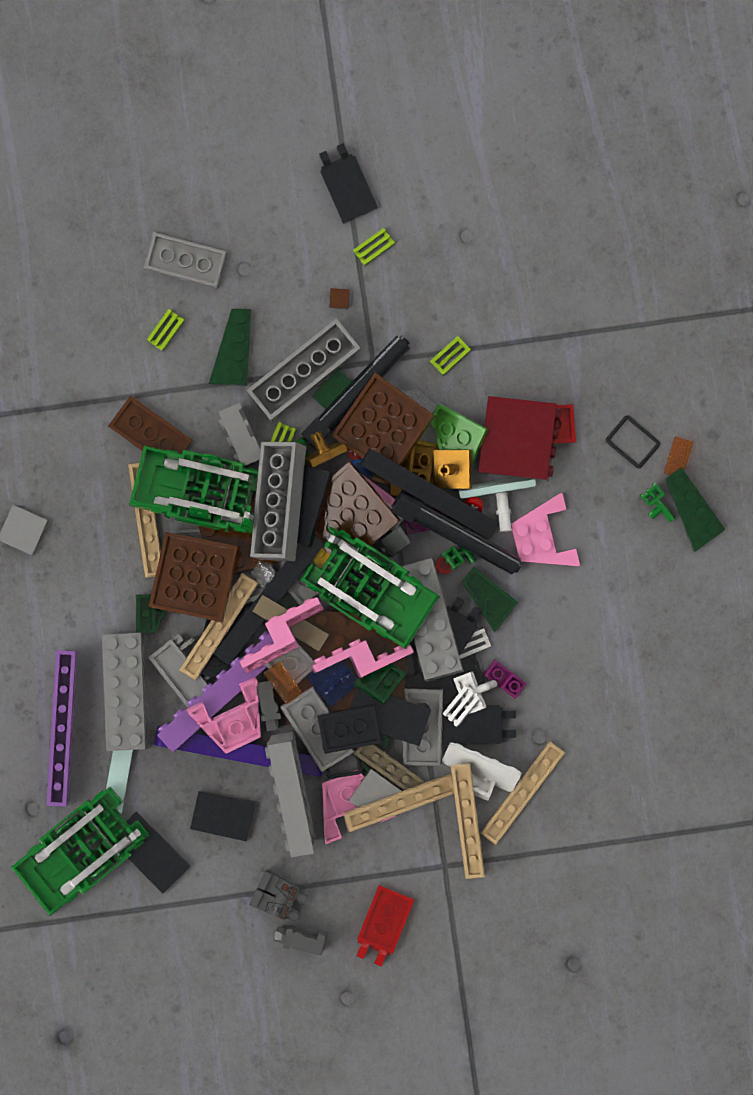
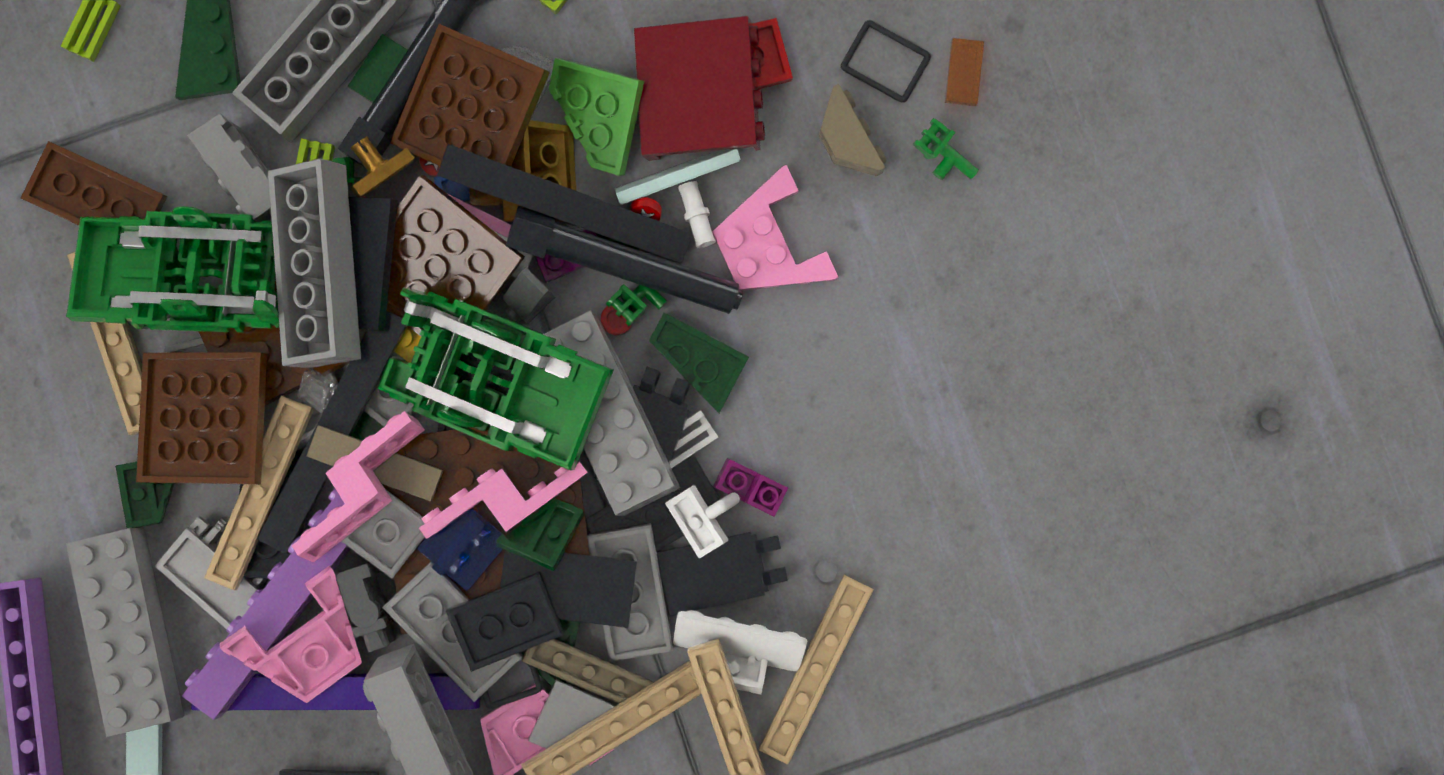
camera: 10 degrees left, 0 degrees up
(282, 682) = (377, 566): clear orange tile -> none
(452, 717) = (675, 566): white tile -> none
(453, 469) = (599, 158): pearl gold tile -> none
(601, 483) = (847, 136): none -> dark tan slope
(696, 515) = (1011, 157): dark green wing -> none

